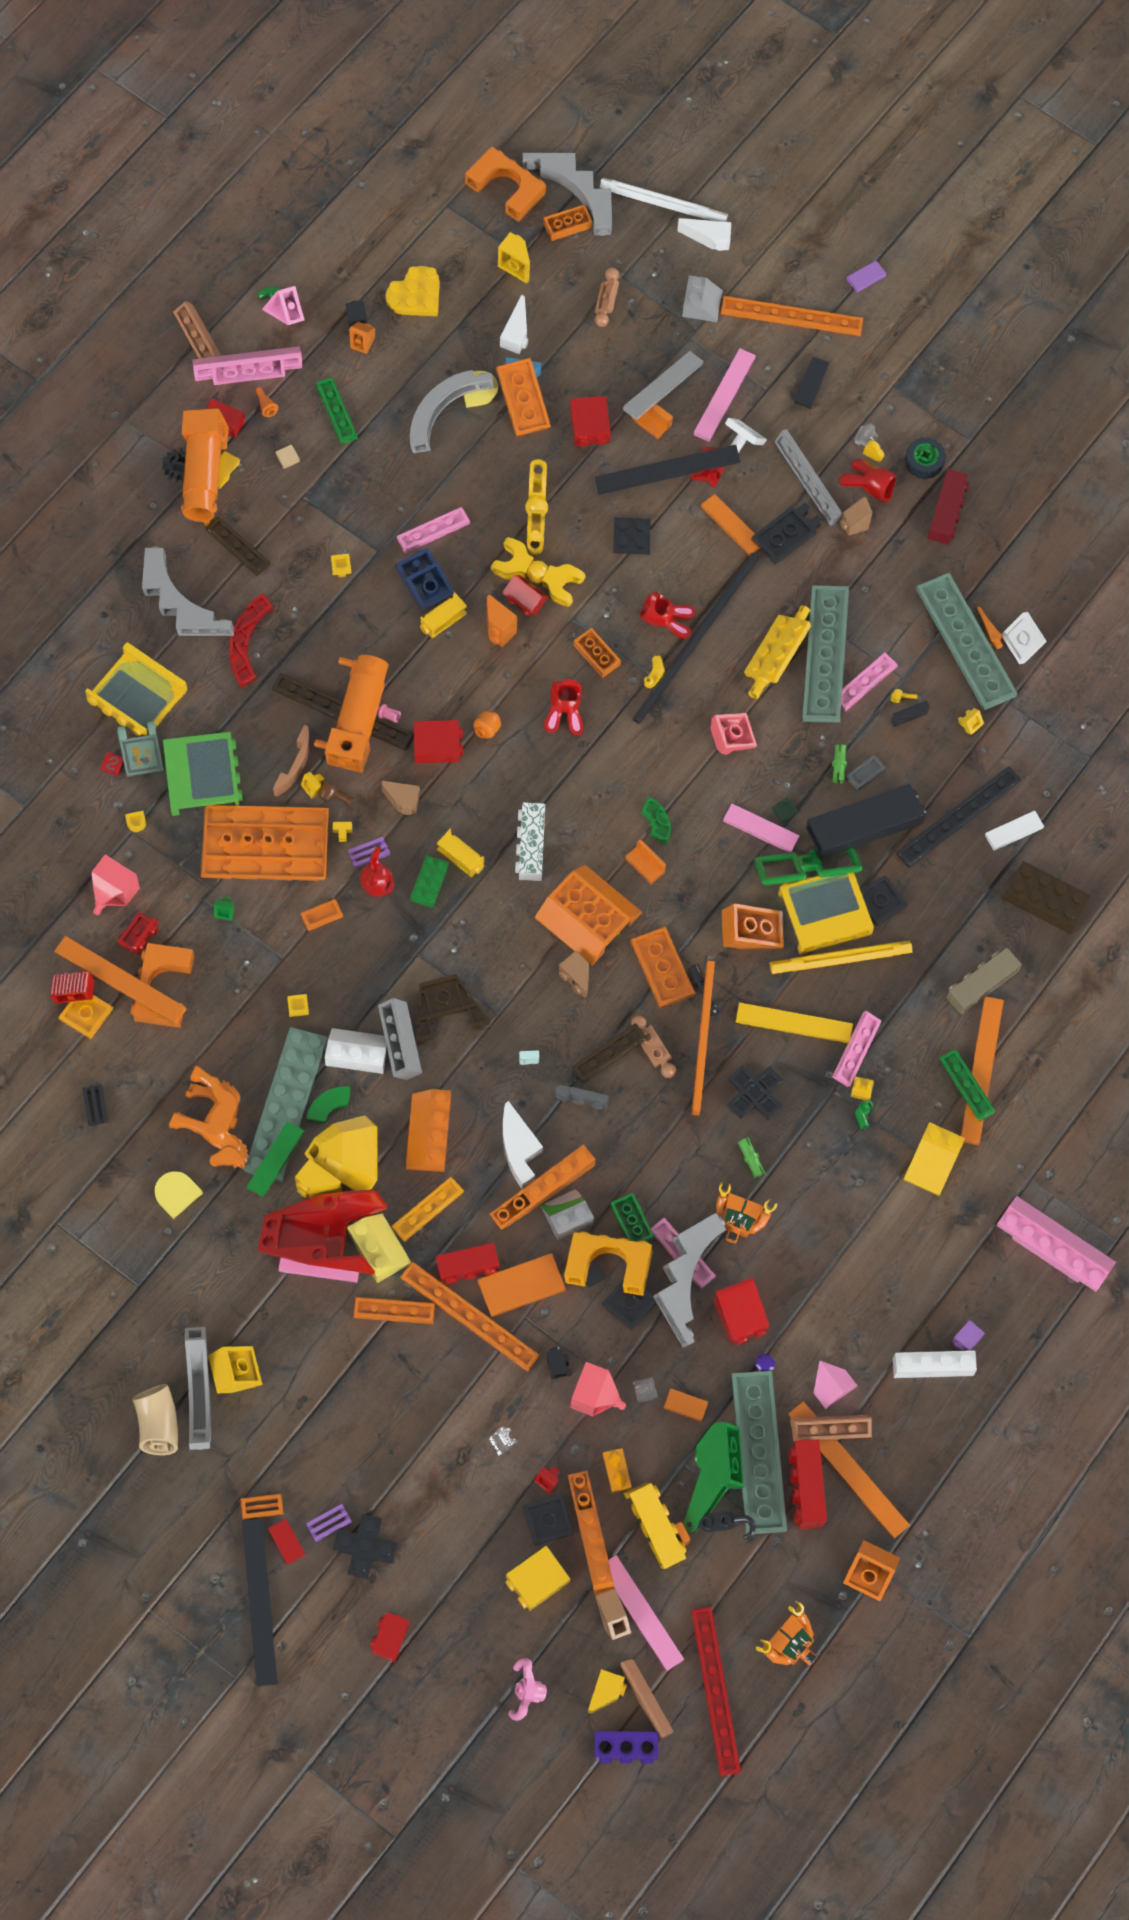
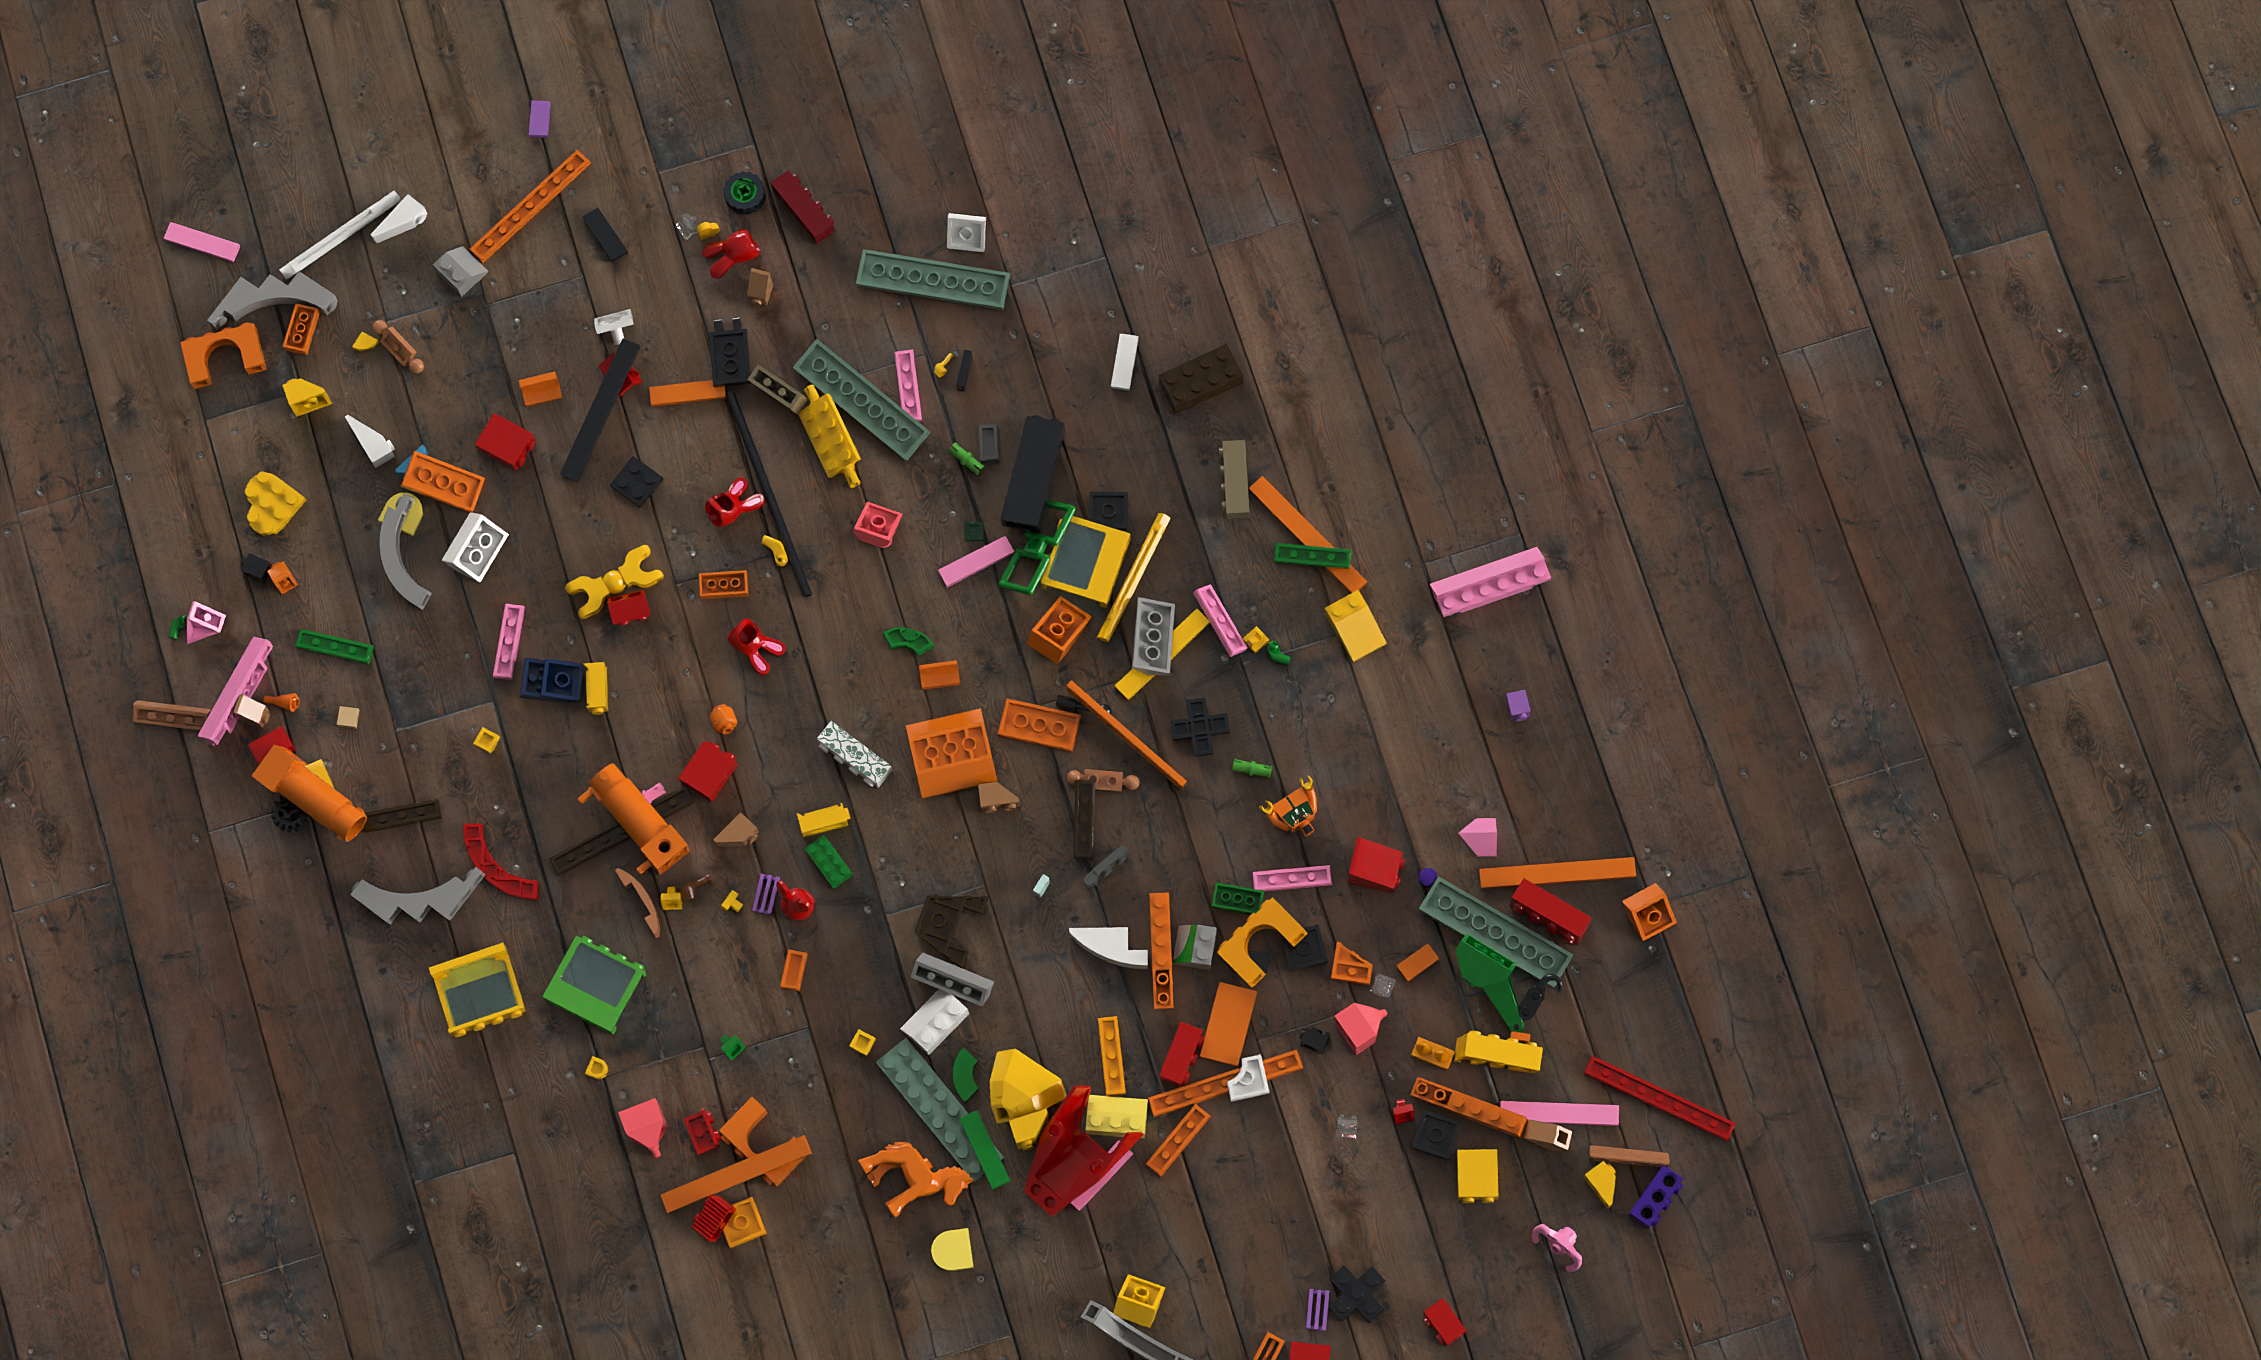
camera: 45 degrees left, 5 degrees up
(92, 1089) = (844, 1273): black tile -> none
(112, 764) = (530, 1053): red tile -> none
(142, 753) = (539, 1023): sand green flag -> none
(239, 383) = (251, 711): none -> slope
(264, 842) = (695, 974): orange piece -> none
(428, 1130) = (1046, 1009): orange slope -> none
(485, 1333) = (1250, 1080): none -> white tile
(490, 455) = (475, 547): none -> white slope
(500, 622) = (638, 645): orange slope -> none
(536, 507) = (555, 541): yellow piece -> none
(582, 113) = (201, 242): none -> bright pink tile
(592, 273) = (364, 342): none -> yellow tile
(641, 1351) = (1350, 967): none -> orange wing
(663, 385) = (519, 358): light grey tile -> none
(675, 1299) = (1327, 909): light grey arch -> none
(724, 395) = (563, 314): bright pink tile -> none
(784, 585) = (777, 389): none -> dark tan brick
(791, 1640) = (1661, 1012): torso -> none
(801, 1004) = (1153, 637): none -> light grey slope
(808, 477) = (691, 300): light grey tile -> none
(831, 1427) = (1515, 862): nougat slope -> none
(934, 1364) = (1521, 746): white brick -> none
(958, 817) = (1080, 397): black tile -> none
(971, 721) = (1007, 326): yellow tile -> none
(993, 635) = (942, 254): orange piece -> none

